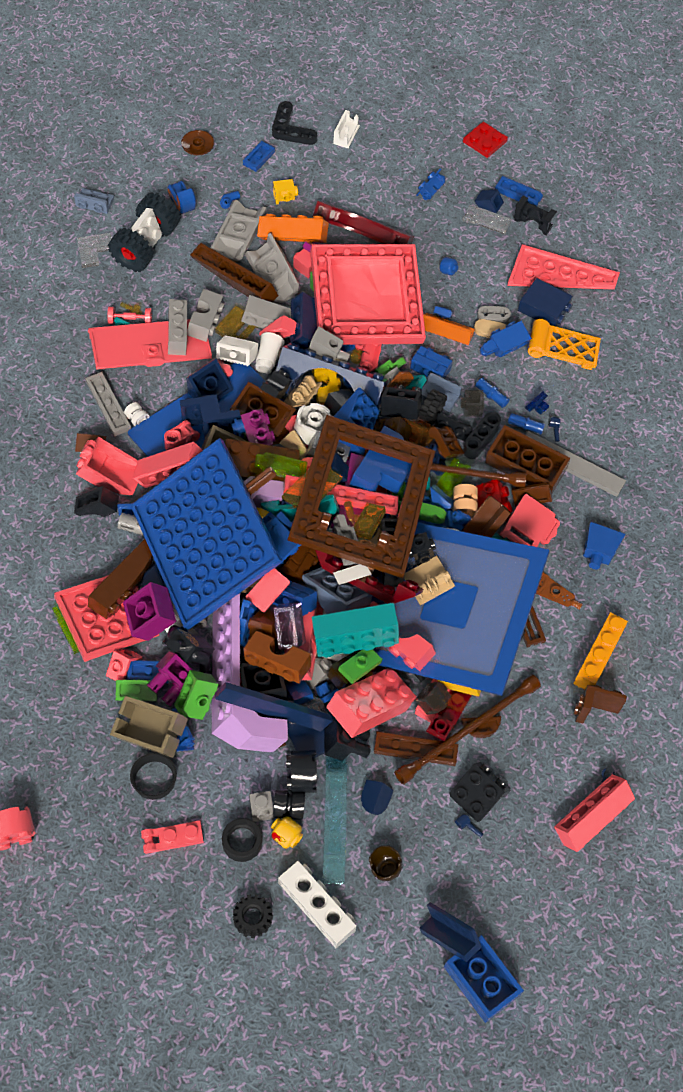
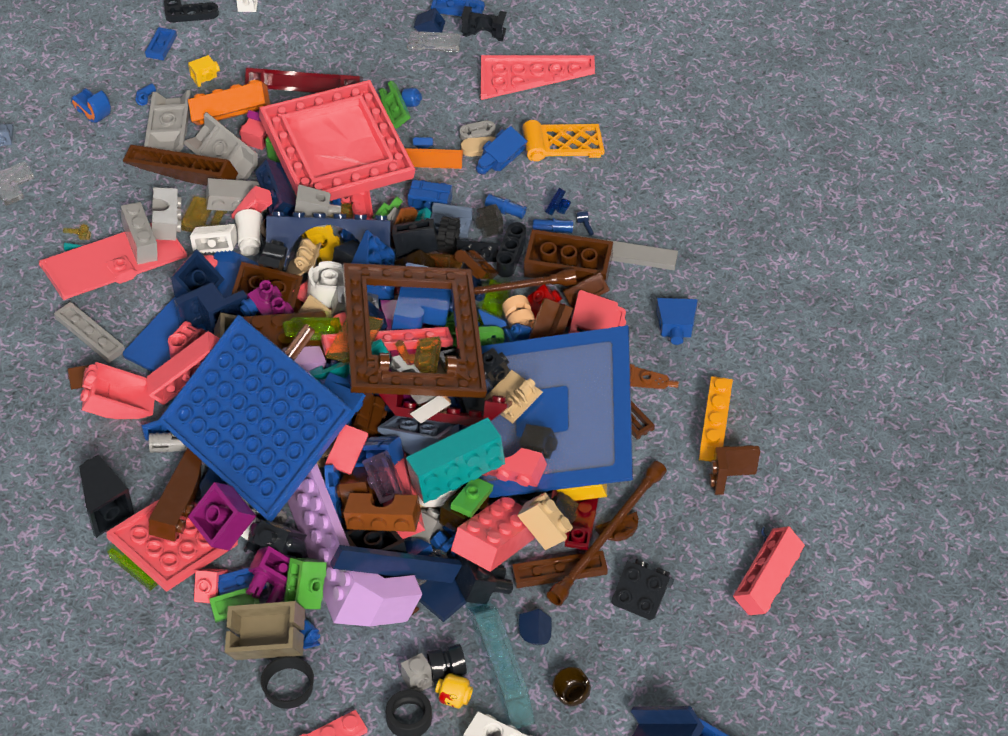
camera: 15 degrees left, 10 degrees down
(62, 559) = (105, 495): none -> black slope
(97, 502) = (118, 430): black arch -> none
(129, 316) = (78, 238): coral wheel -> none
(135, 245) = (60, 165): black plate -> none
(135, 413) = (124, 332): white wheel -> none
(197, 142) = (87, 47): reddish brown dish -> none
(302, 771) = (448, 624): black brick -> none
(415, 705) = (545, 521): none -> tan brick
(431, 269) = (394, 105): none -> bright green hinge
(435, 180) = (361, 26): blue hinge -> none
(435, 631) = (539, 439): none -> clear smoke brick
(464, 821) = (638, 622): dark blue hand -> none
(545, 303) = (528, 103): dark blue brick -> none

